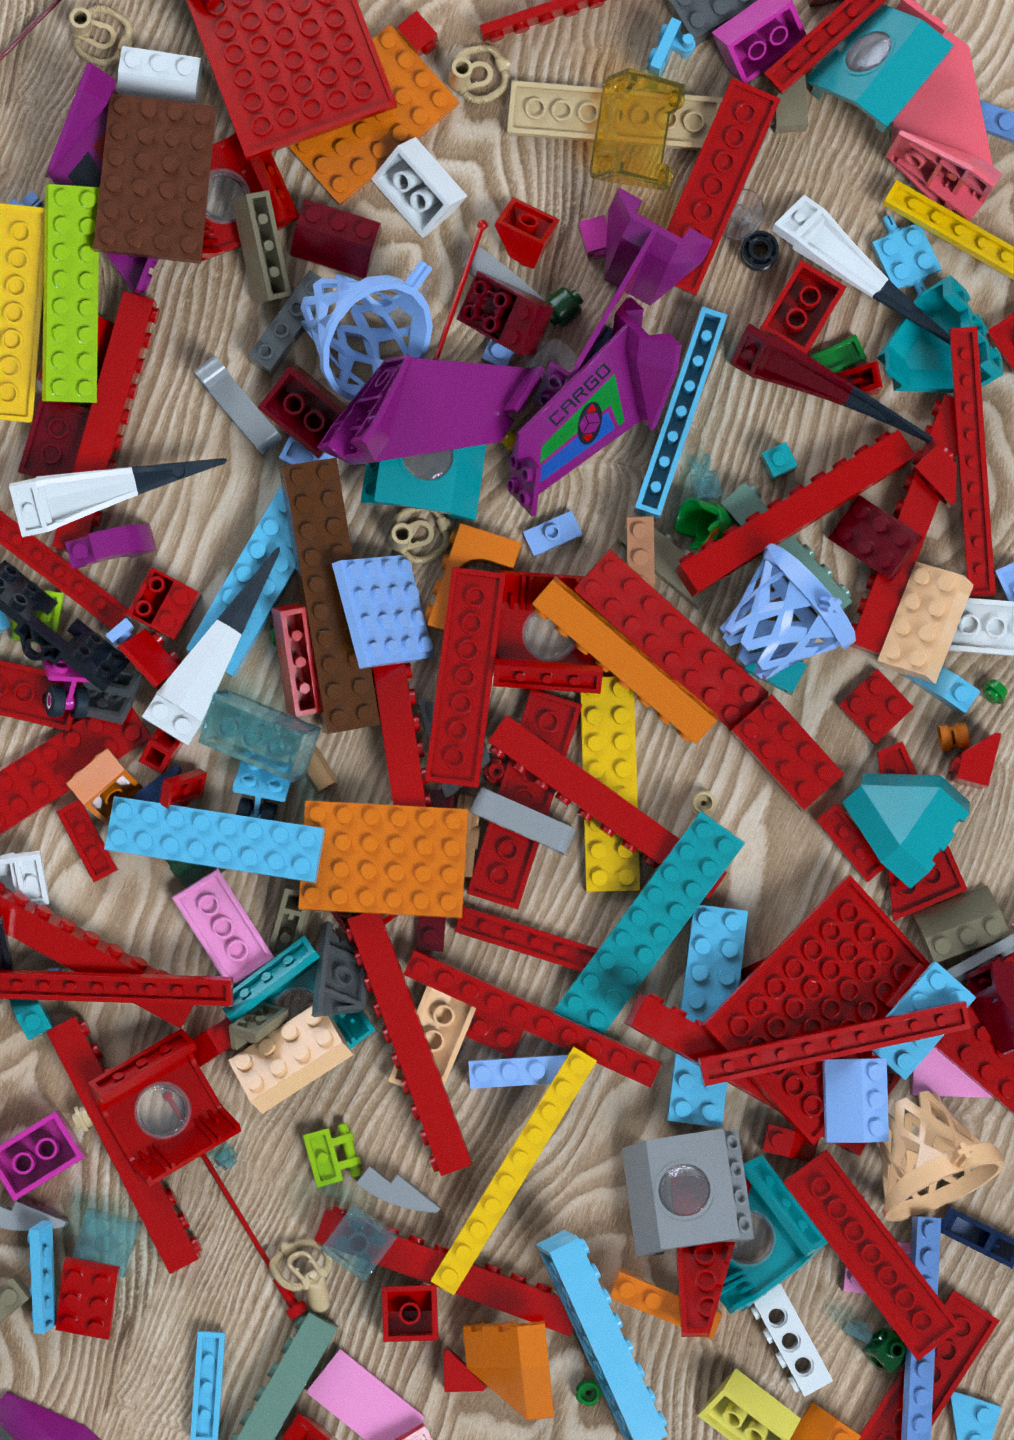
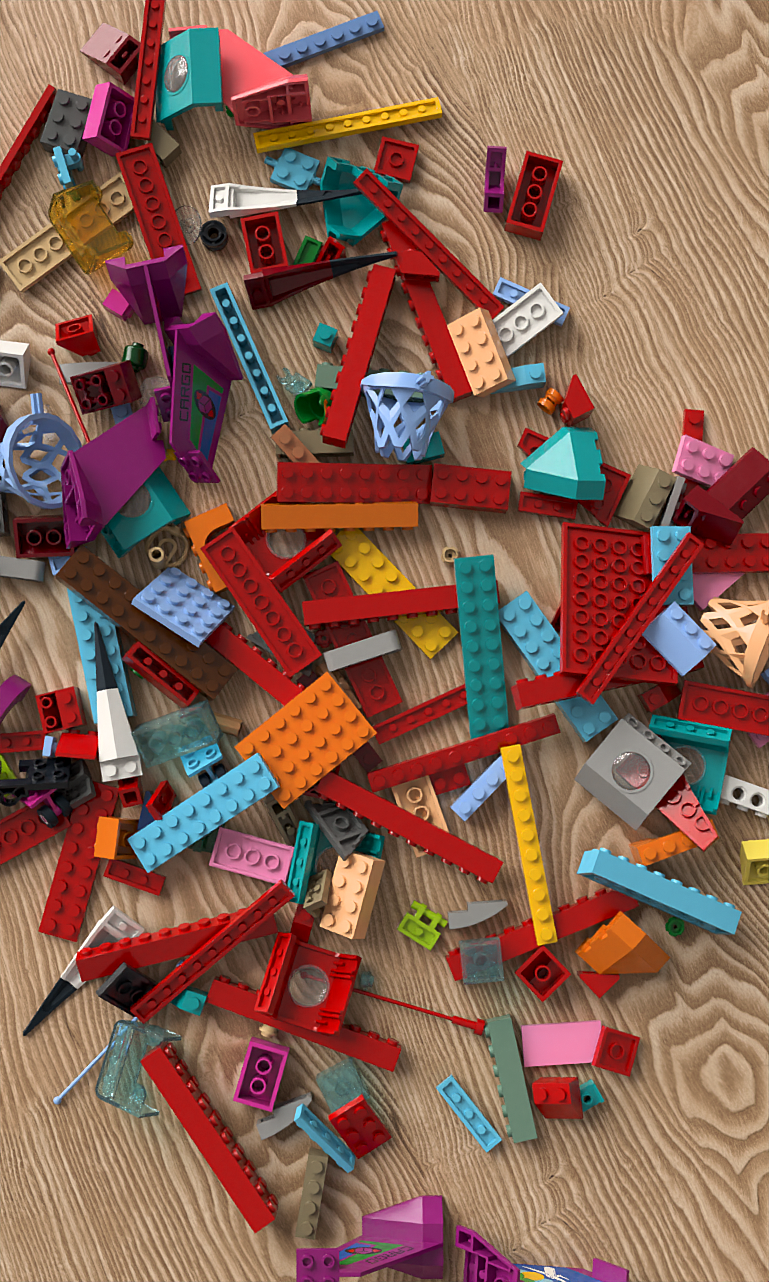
camera: 45 degrees left, 0 degrees up
(313, 1282) = (475, 1003): tan piece -> none
(552, 533) = (239, 484): light blue plate -> none
(875, 538) = (414, 331): dark red plate -> none
(875, 706) = (494, 422): red plate -> none
(994, 691) = (550, 358): green plate -> none

